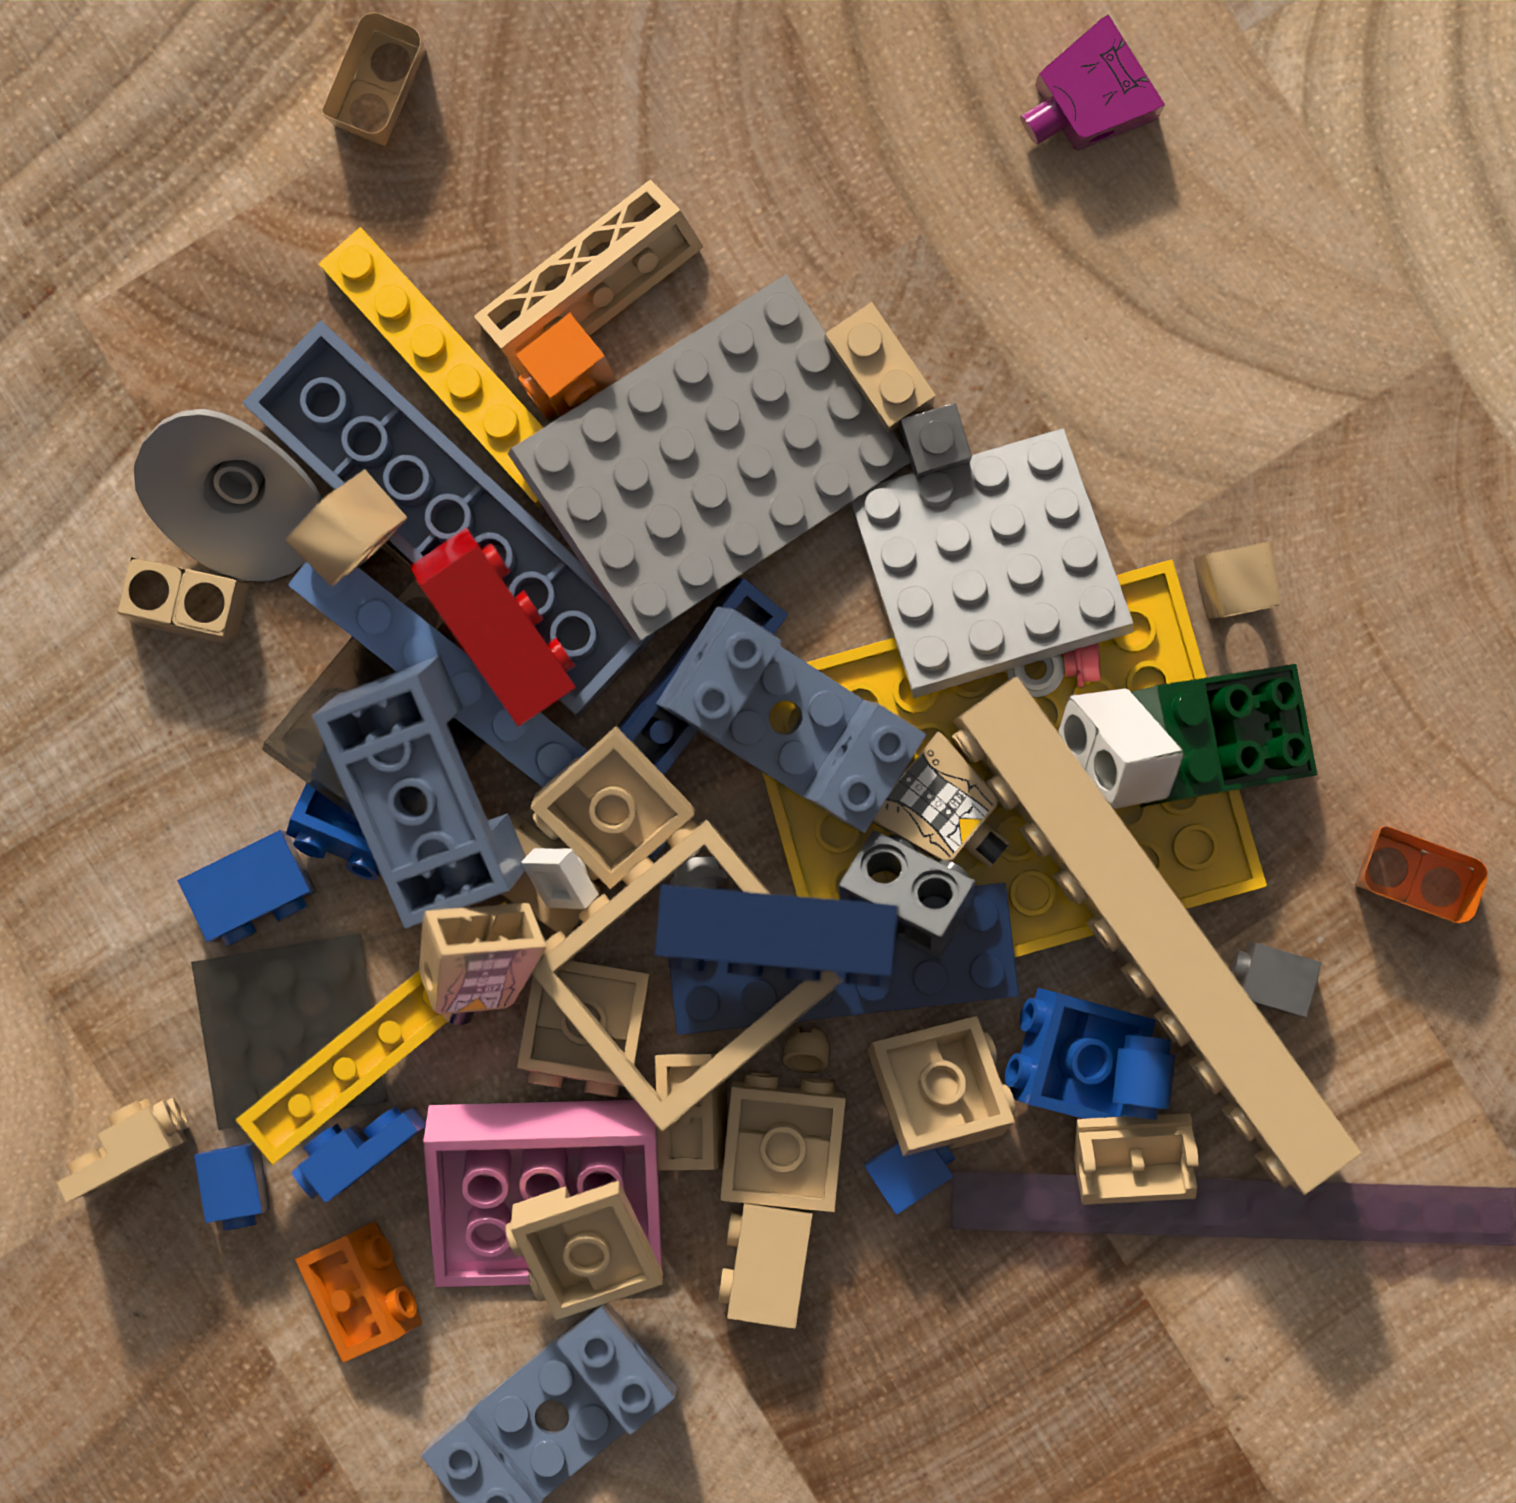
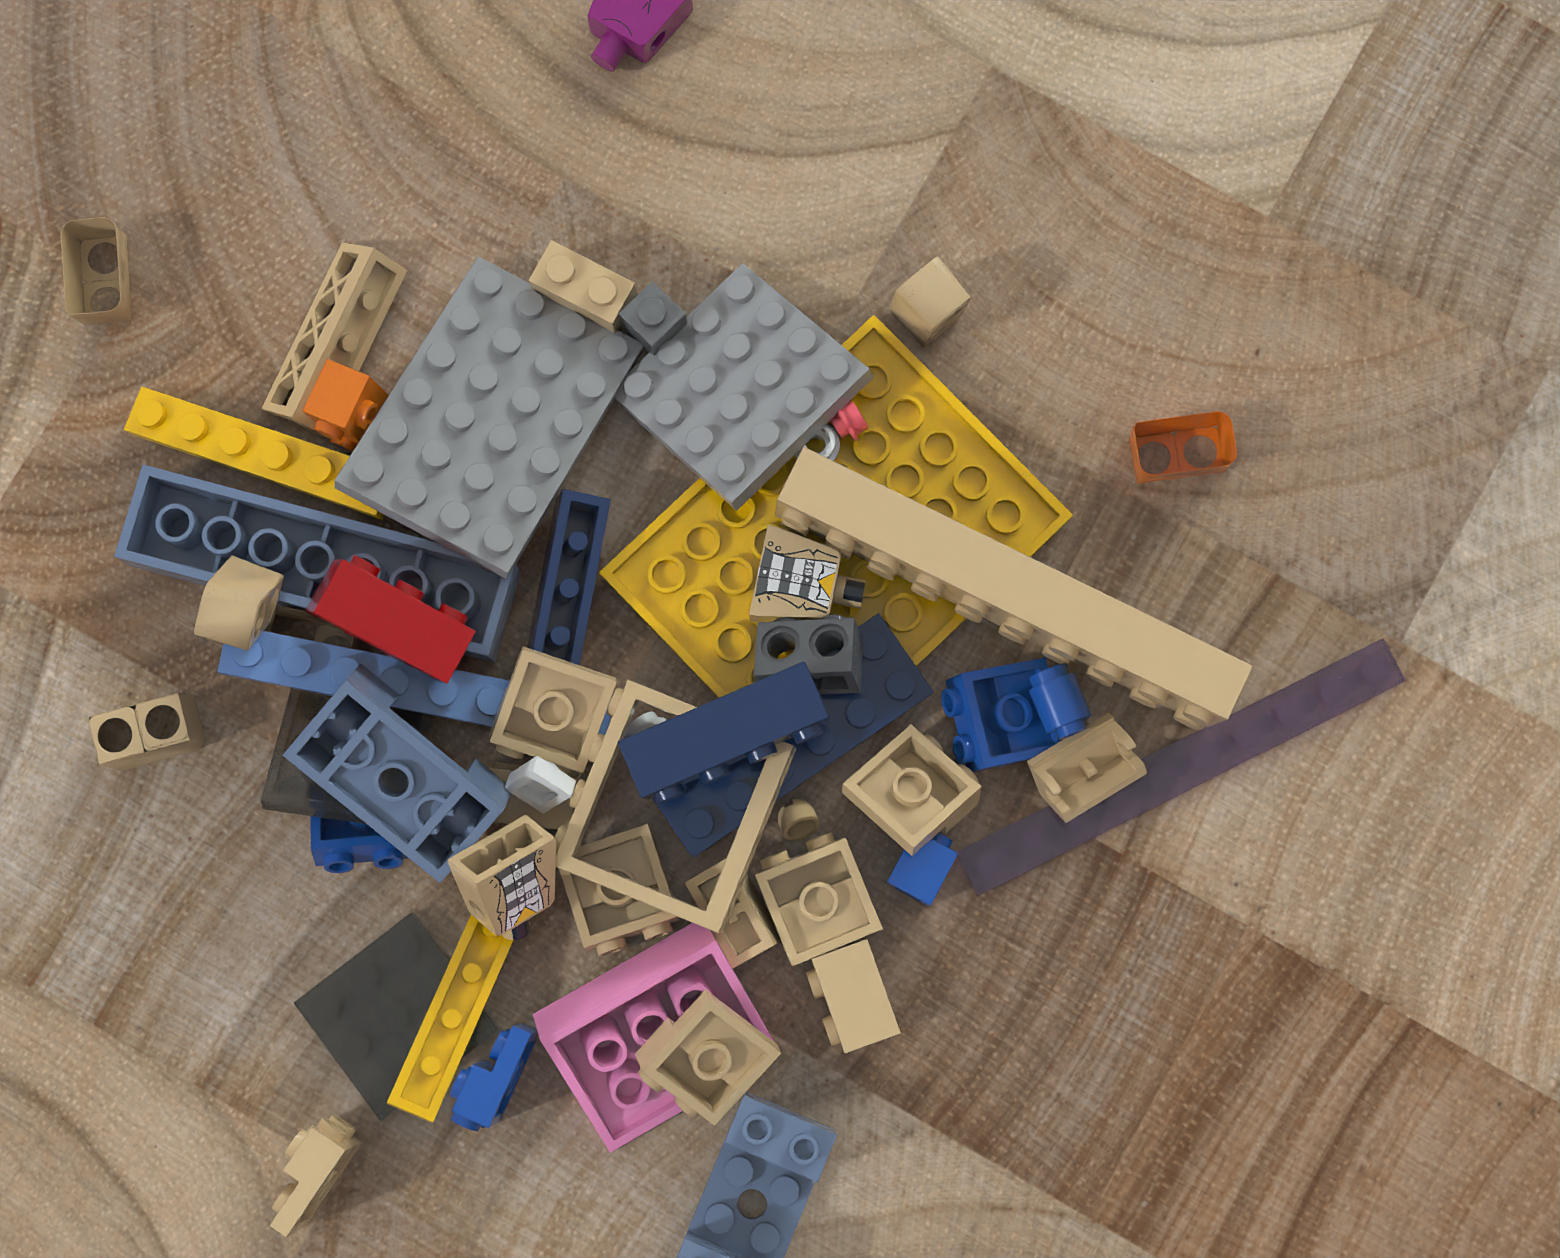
camera: 30 degrees left, 5 degrees down
(224, 494) = (134, 633): light grey hat -> none
(232, 1185) = (412, 1157): blue brick -> none
(247, 888) = (308, 923): blue brick -> none
(359, 1291) = (553, 1186): orange bracket -> none
(838, 754) = (702, 583): sand blue plate -> none
(1109, 734) = (909, 447): white piece -> none
(1233, 730) = (975, 422): dark green slope -> none
(1276, 978) = (1121, 576): flat silver brick -> none

